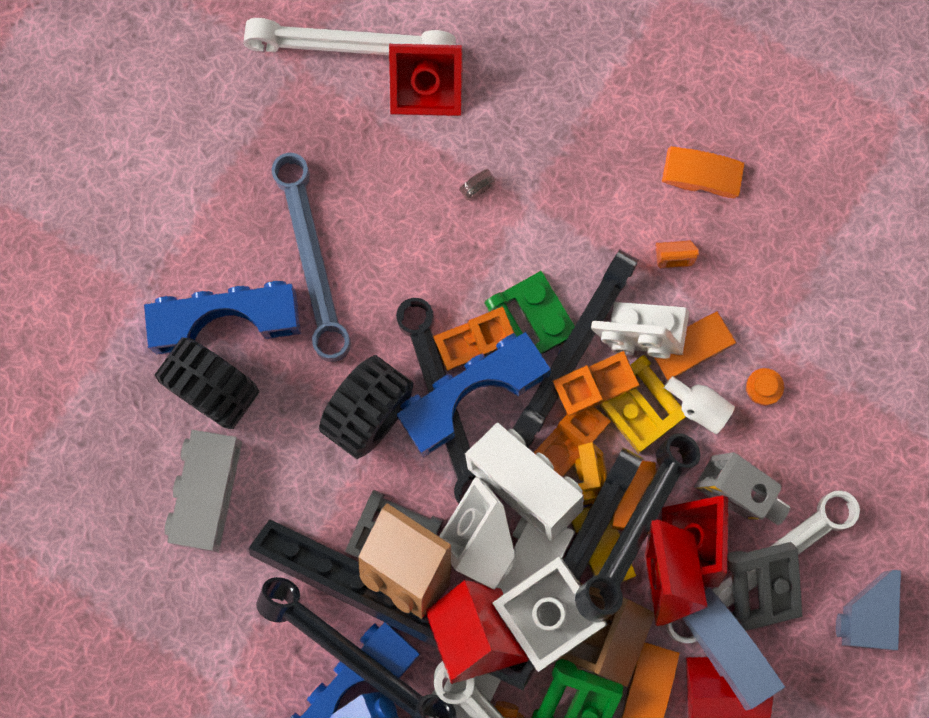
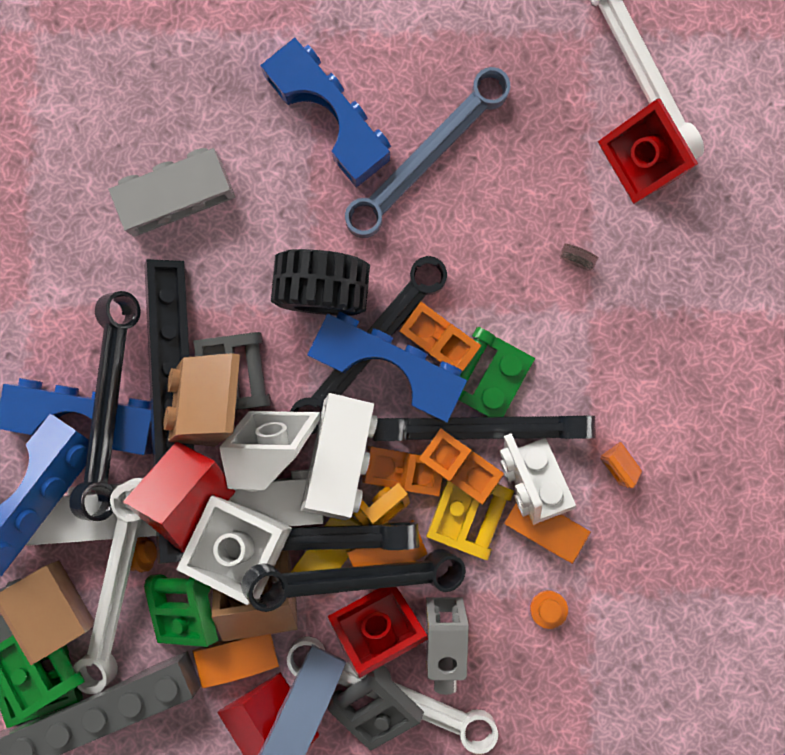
camera: 50 degrees right, 10 degrees up
(207, 382) = (257, 134): black tyre -> none
(673, 573) = (335, 630): red slope -> none
(702, 404) = (499, 566): white piece -> none
(704, 171) = (712, 446): orange slope -> none

